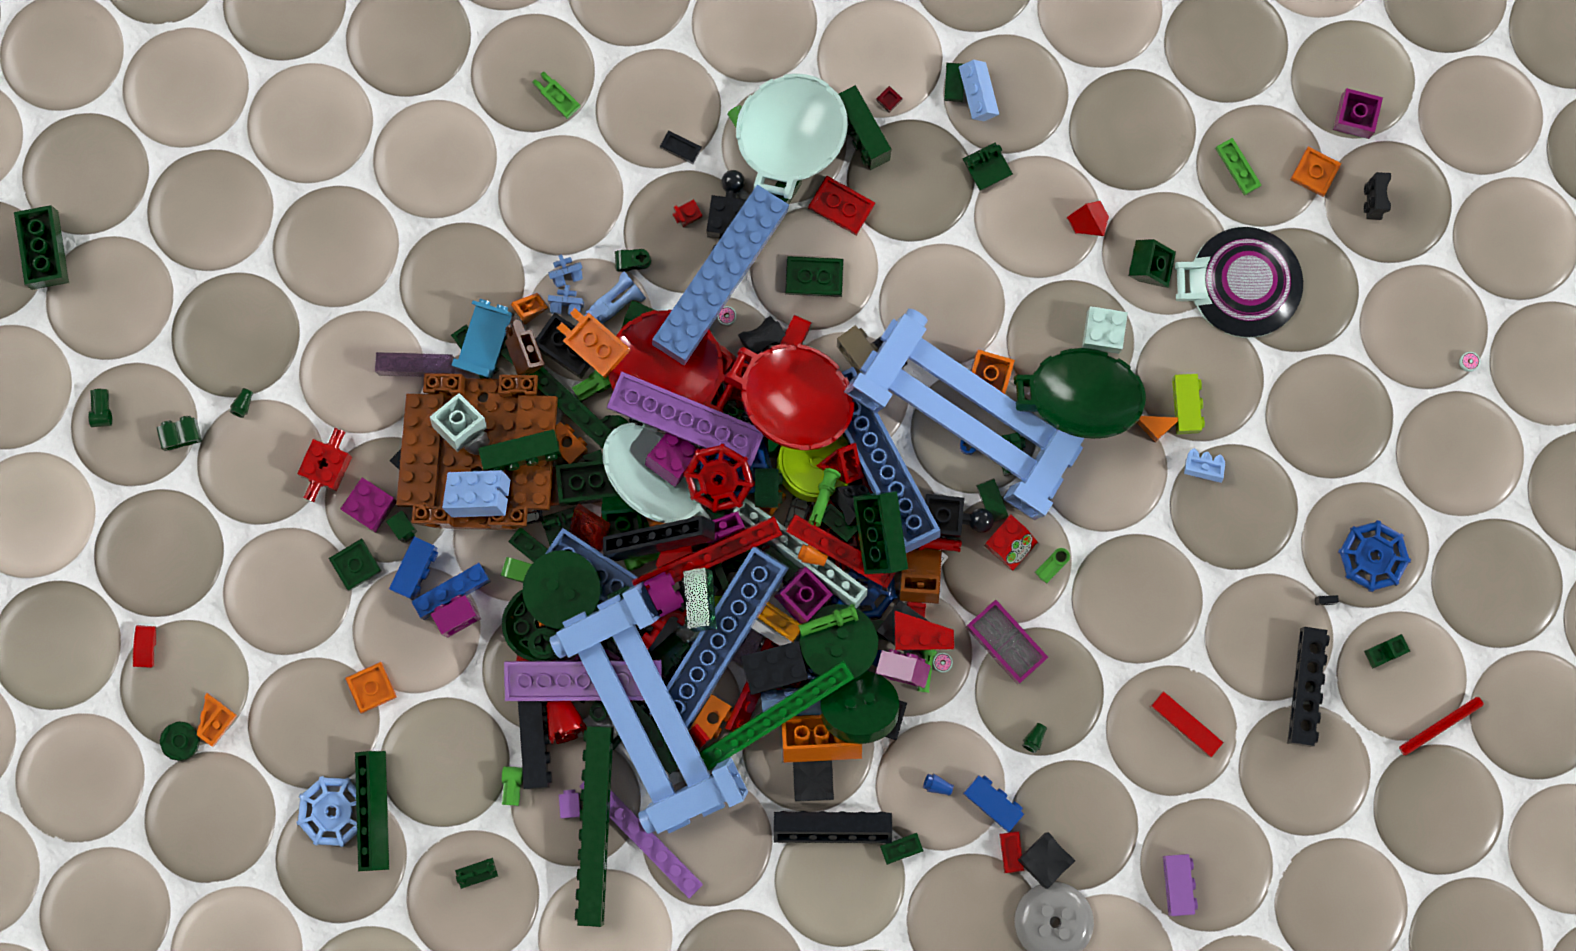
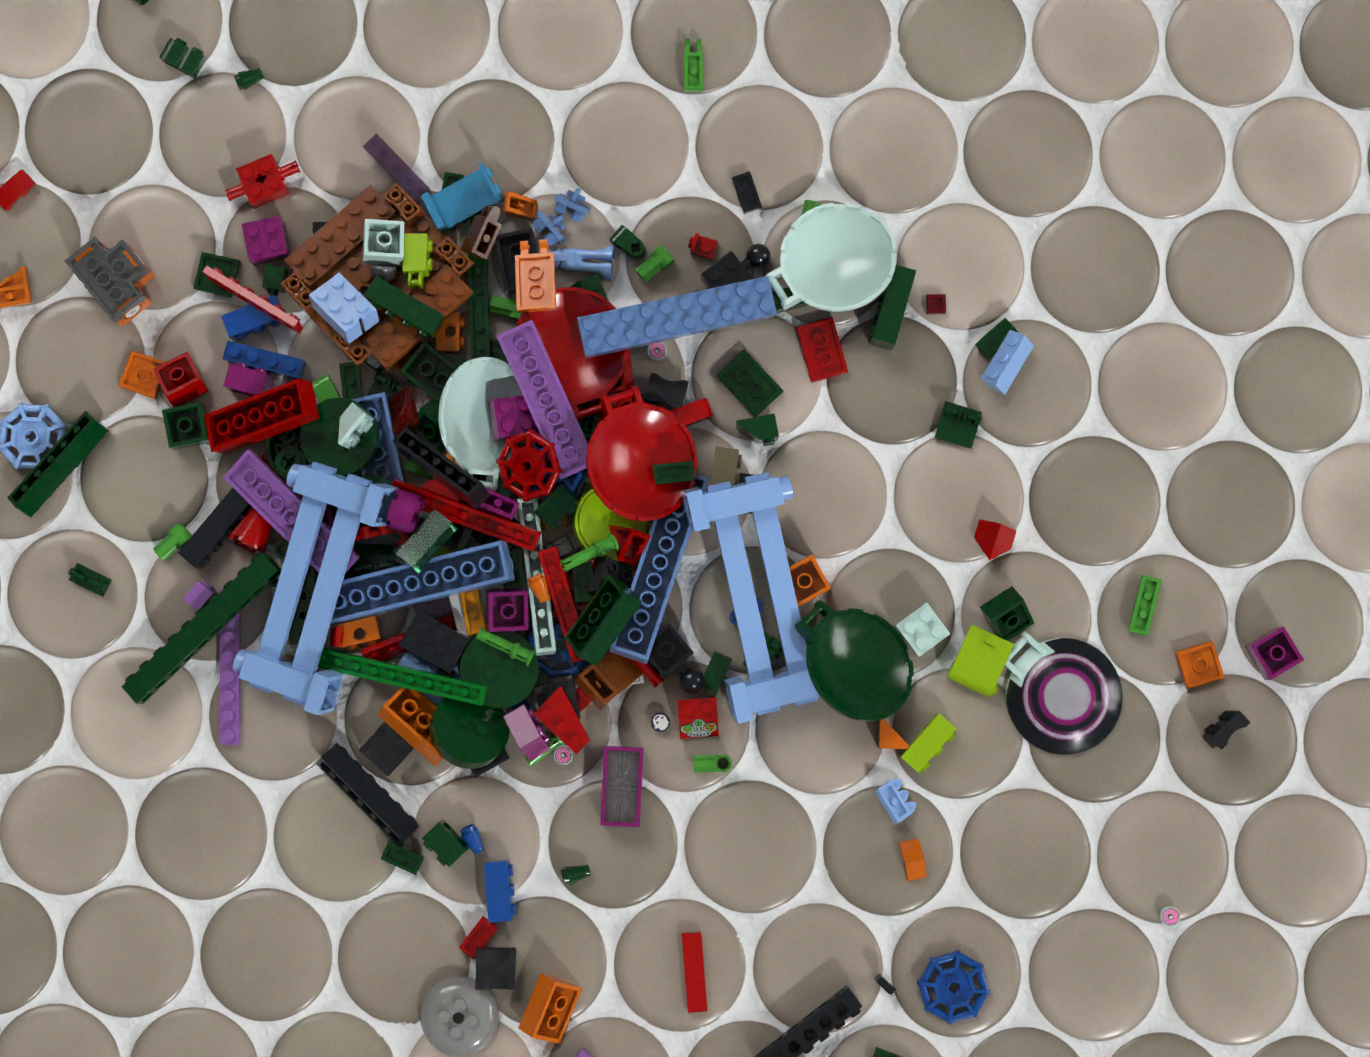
camera: 45 degrees right, 5 degrees up
(282, 636) = (113, 278): none -> dark grey piece
(395, 554) = (247, 295): none -> plate
(403, 663) = (180, 379): none -> red slope
(440, 691) = (185, 425): none -> dark green brick
(491, 629) = (261, 416): none -> red brick
(494, 412) = (417, 258): none -> lime brick
(564, 566) = (352, 425): none -> light aqua slope
(665, 256) = (659, 260): none -> bright green piece
(826, 384) = (673, 472): none -> dark green plate
(855, 299) = (759, 429): none -> dark green slope
(923, 805) = (445, 843): none -> dark green brick
(987, 572) = (660, 722): none -> tile
(1112, 851) = (549, 1008): none -> orange slope
(1168, 314) = (978, 663): none -> lime door
(1258, 495) = (913, 859): none -> orange slope

